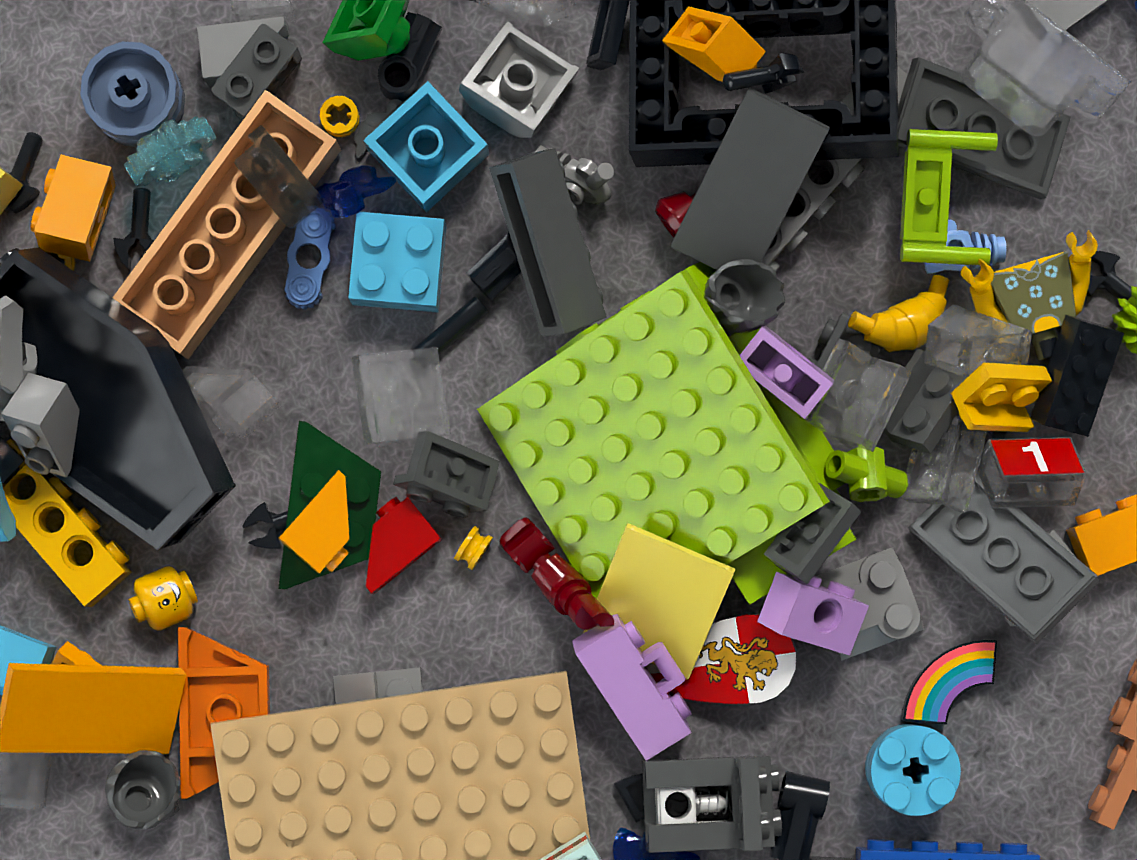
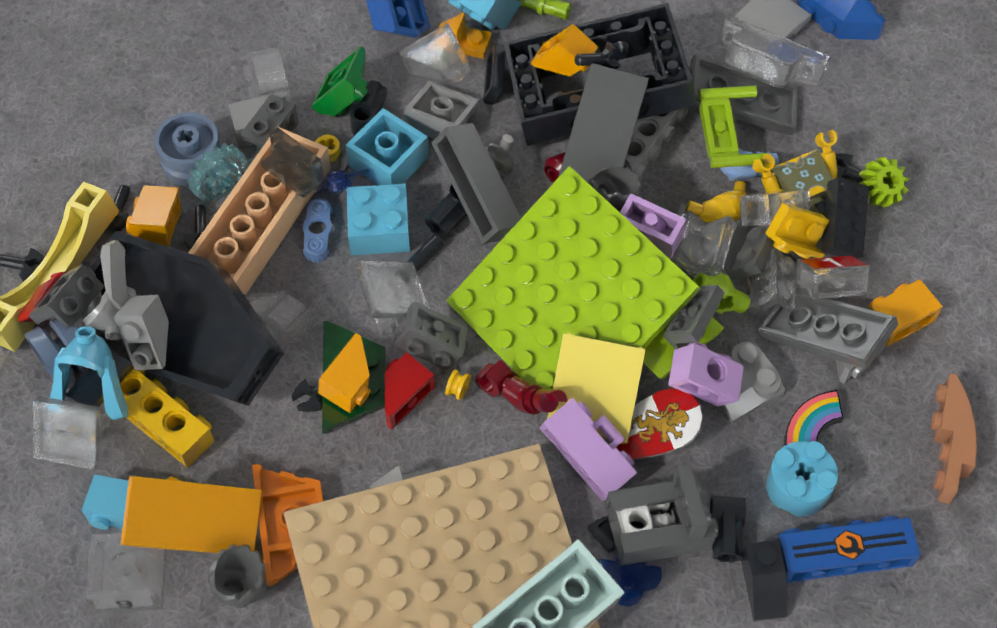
camera: 10 degrees left, 25 degrees down
(163, 598) = (239, 448): yellow head -> none

